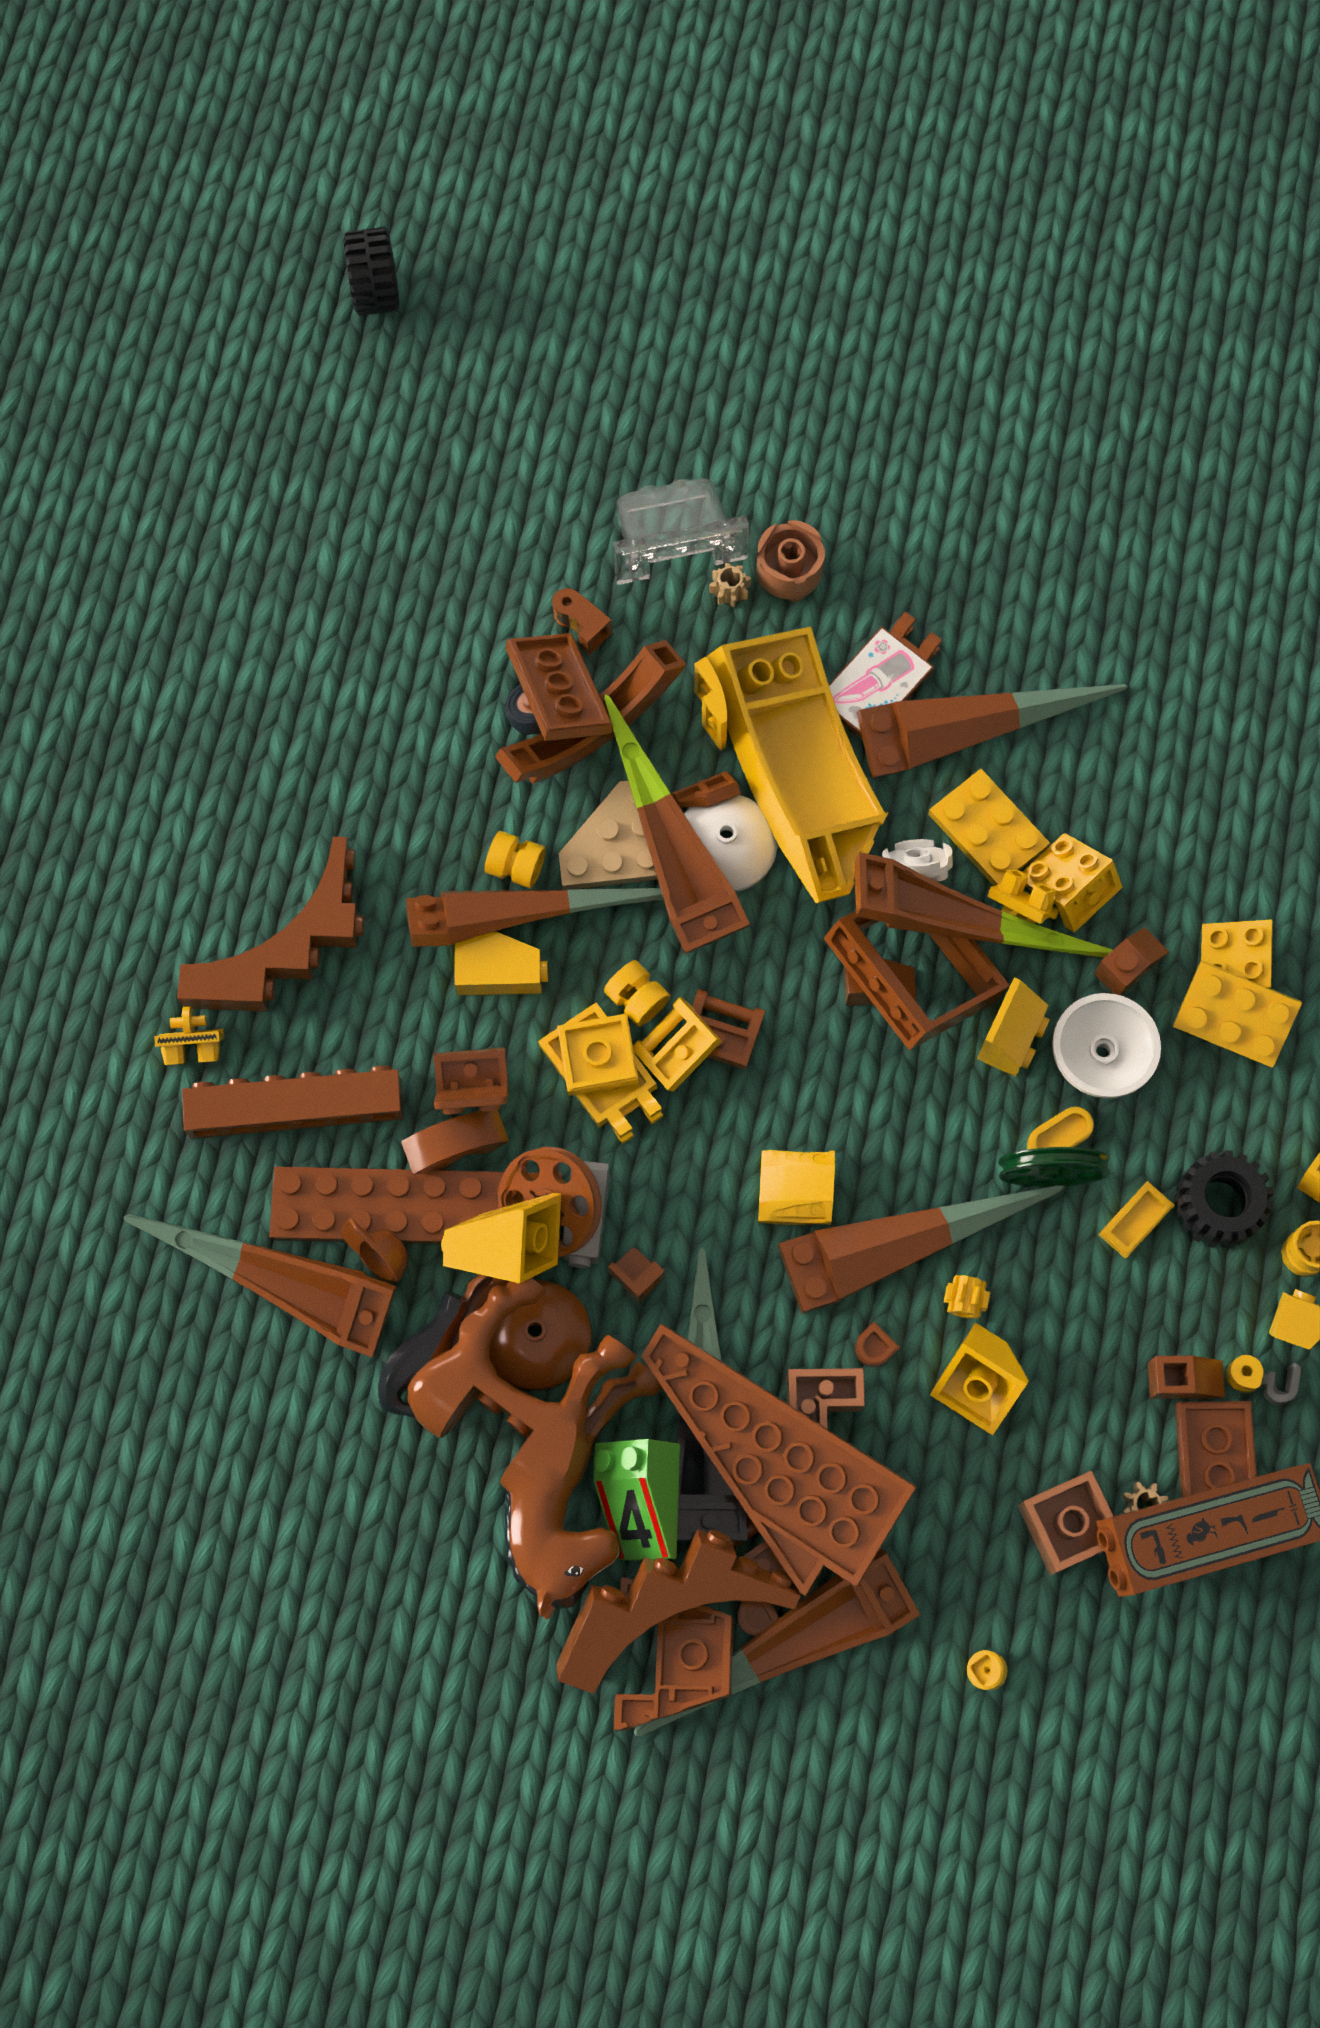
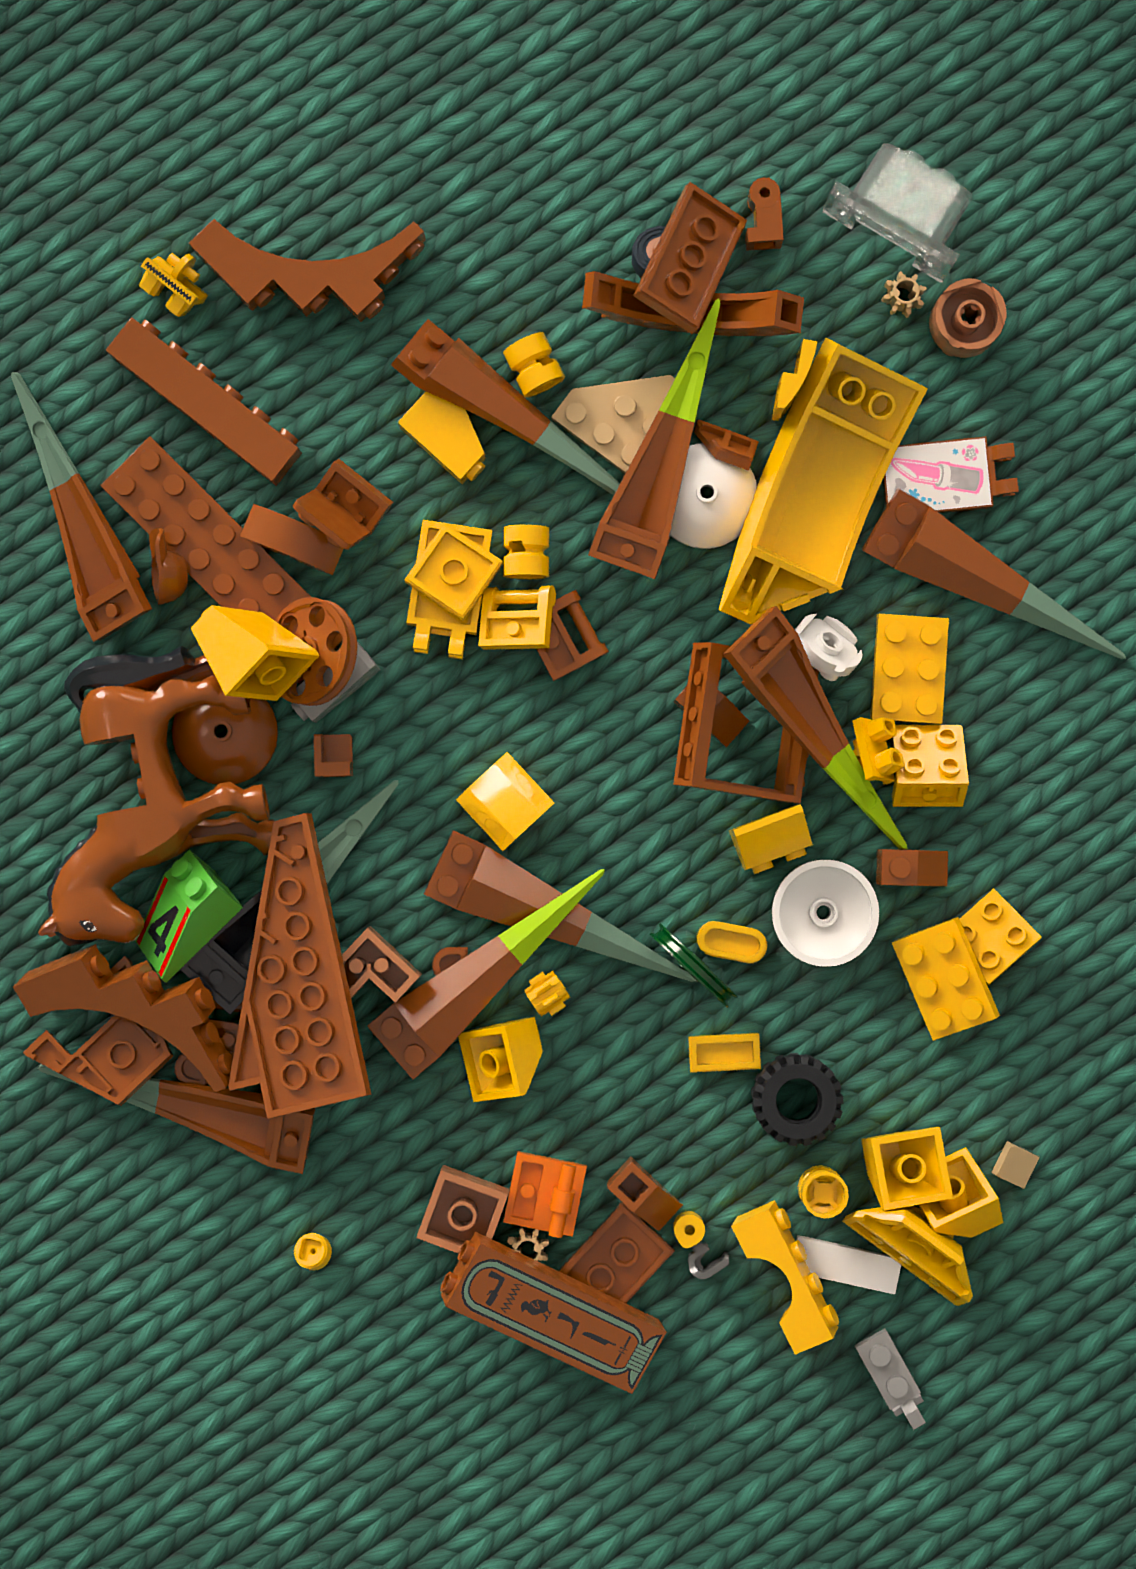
camera: 45 degrees right, 15 degrees up
(900, 1386) = (437, 1012): none -> dark orange plate
(1115, 1450) = (545, 1194): none -> orange plate

